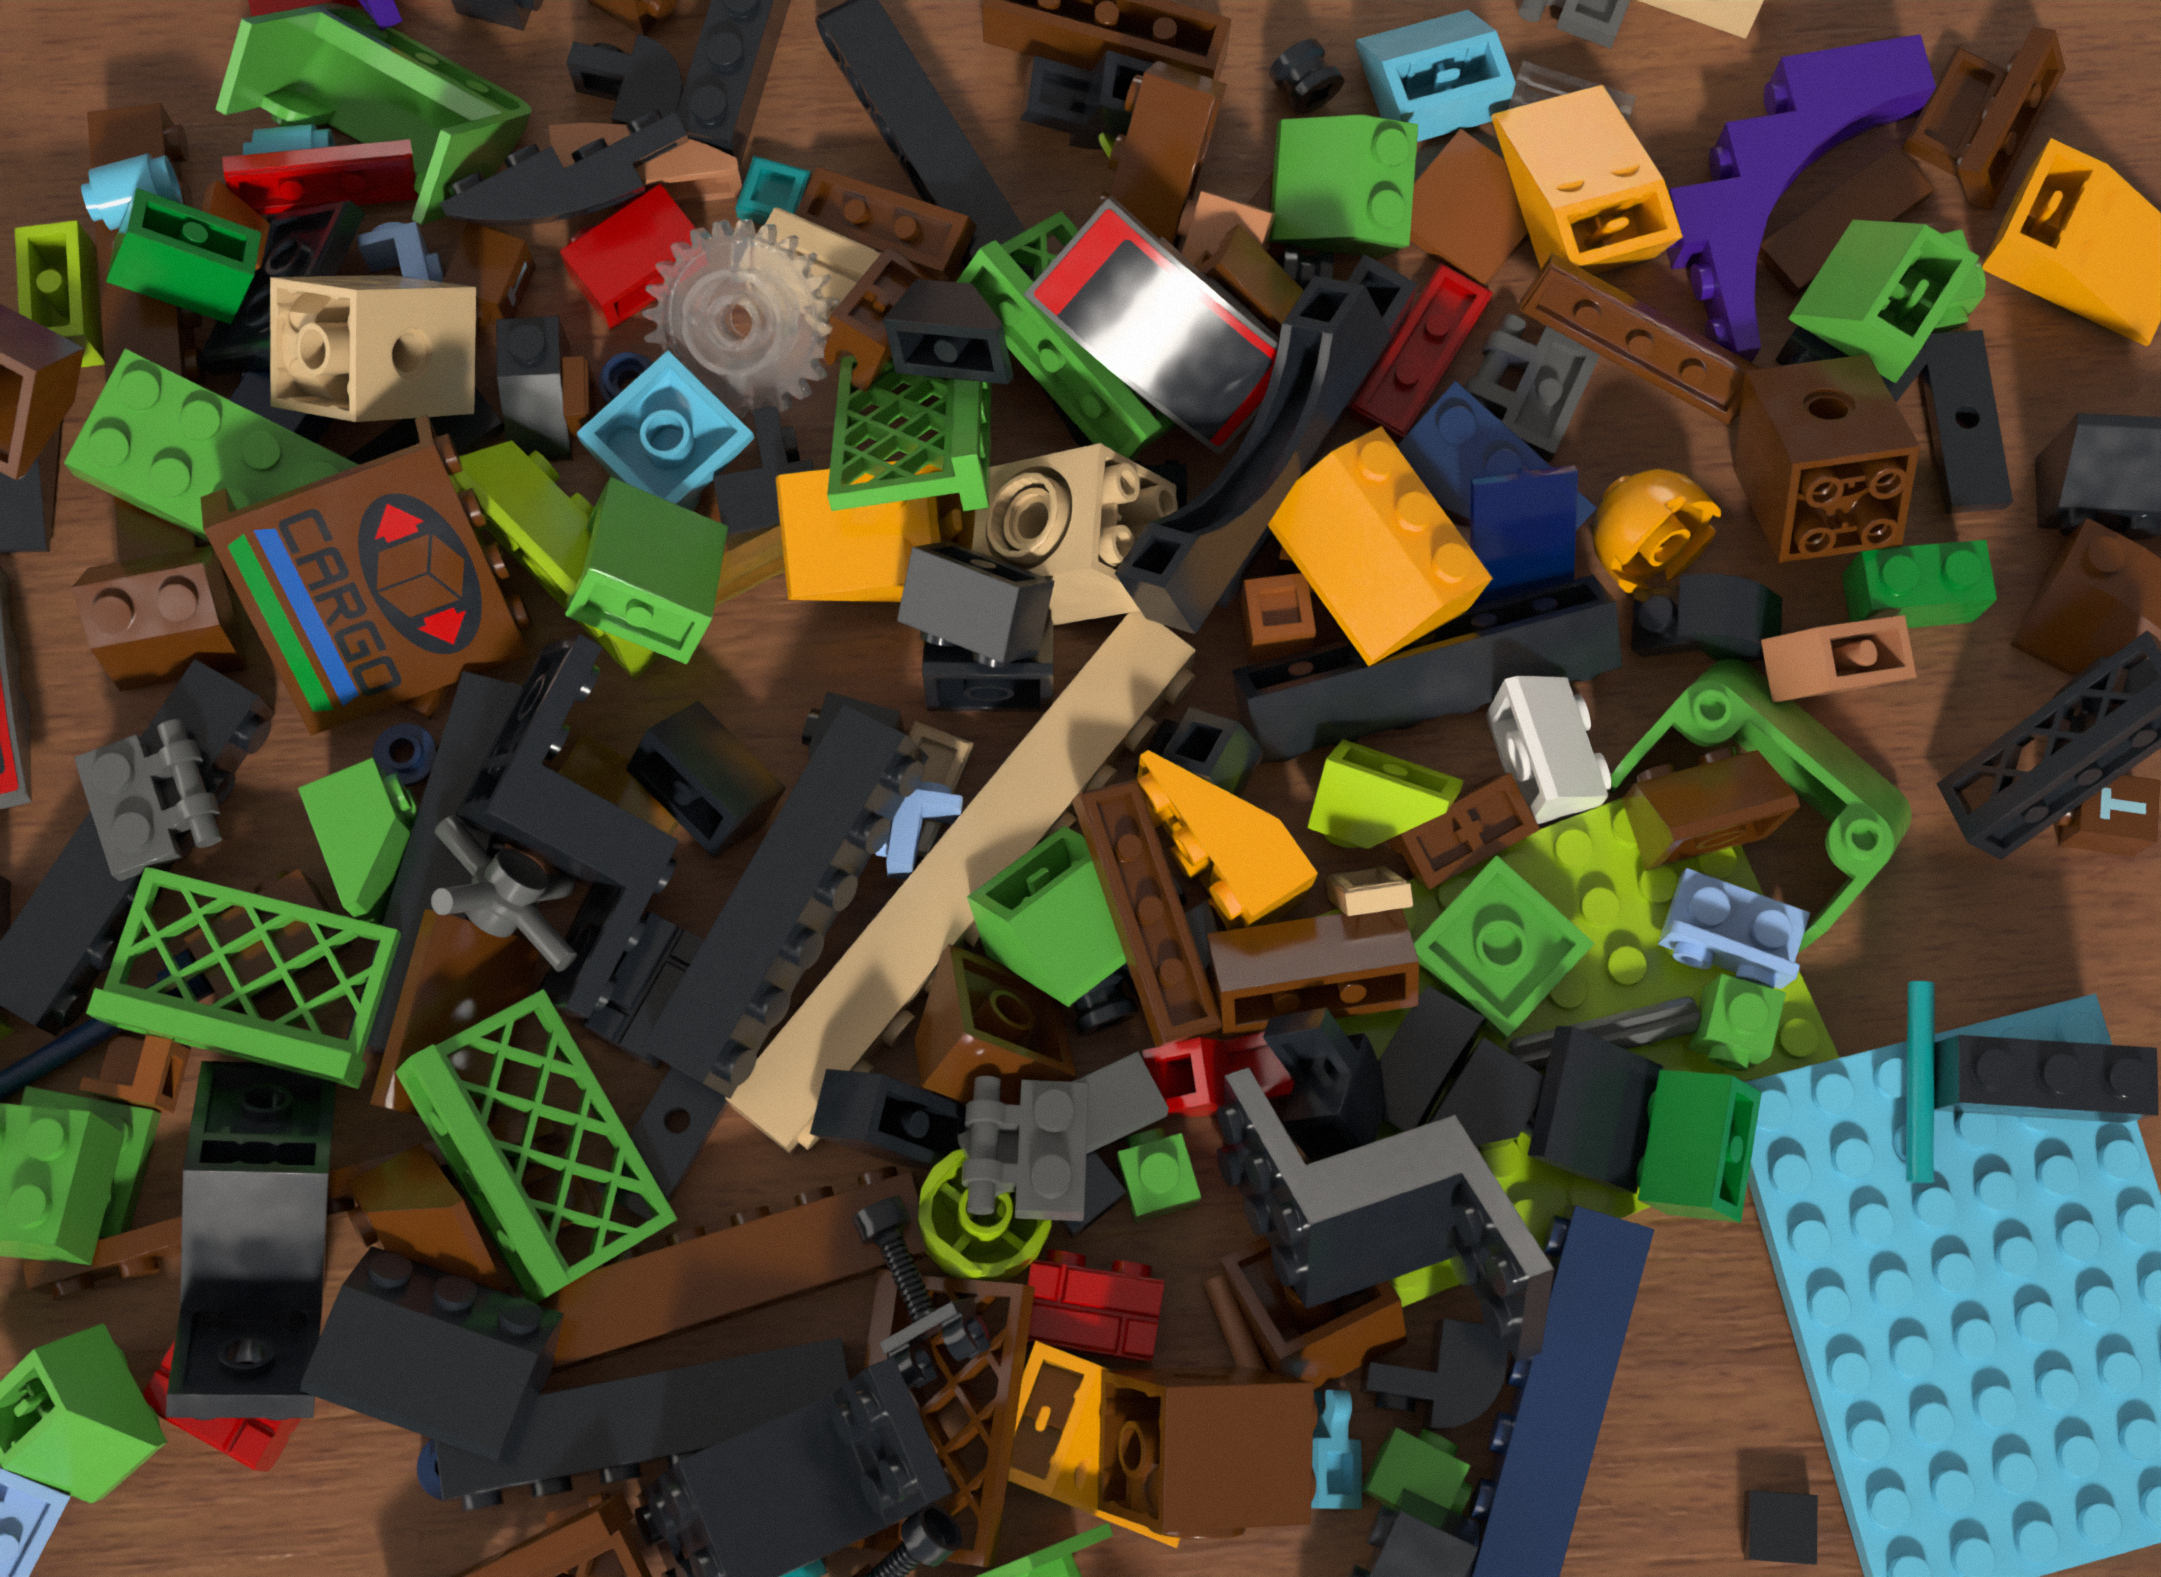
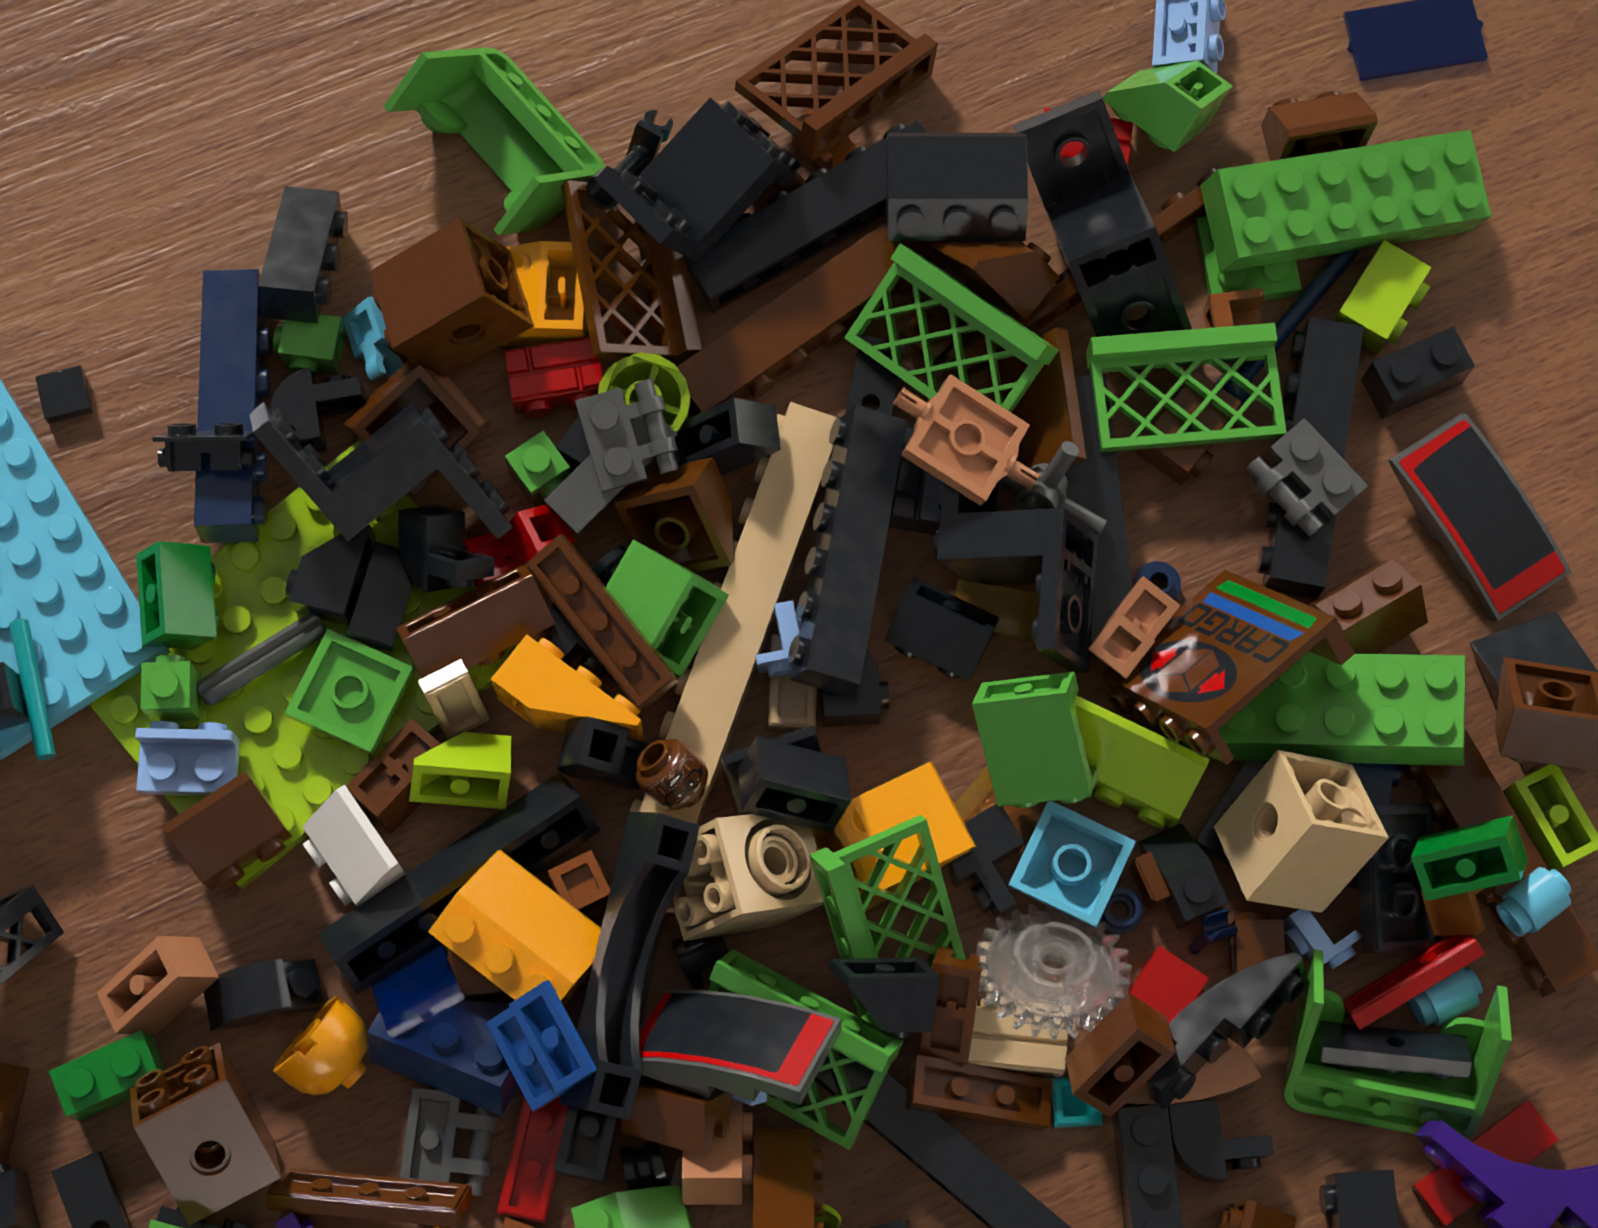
camera: 160 degrees right, 0 degrees up
(363, 832) = (1154, 503): bright green slope -> none
(368, 102) = (1394, 1050): none -> black tile
(469, 681) = (1133, 627): none -> nougat slope
(527, 302) = (1215, 928): none -> dark blue hand
(575, 970) = (965, 440): none -> nougat plate
(704, 174) = (1120, 1055): none -> reddish brown brick
(960, 1325) = (661, 301): black bar -> none
(1122, 682) = (671, 774): none -> reddish brown head
(1396, 386) = (541, 1046): none -> blue slope
(1594, 1109) = (254, 596): black tile -> none
(1638, 1347) = (186, 447): none -> black hinge
(1861, 805) = (146, 907): bright green windscreen -> none

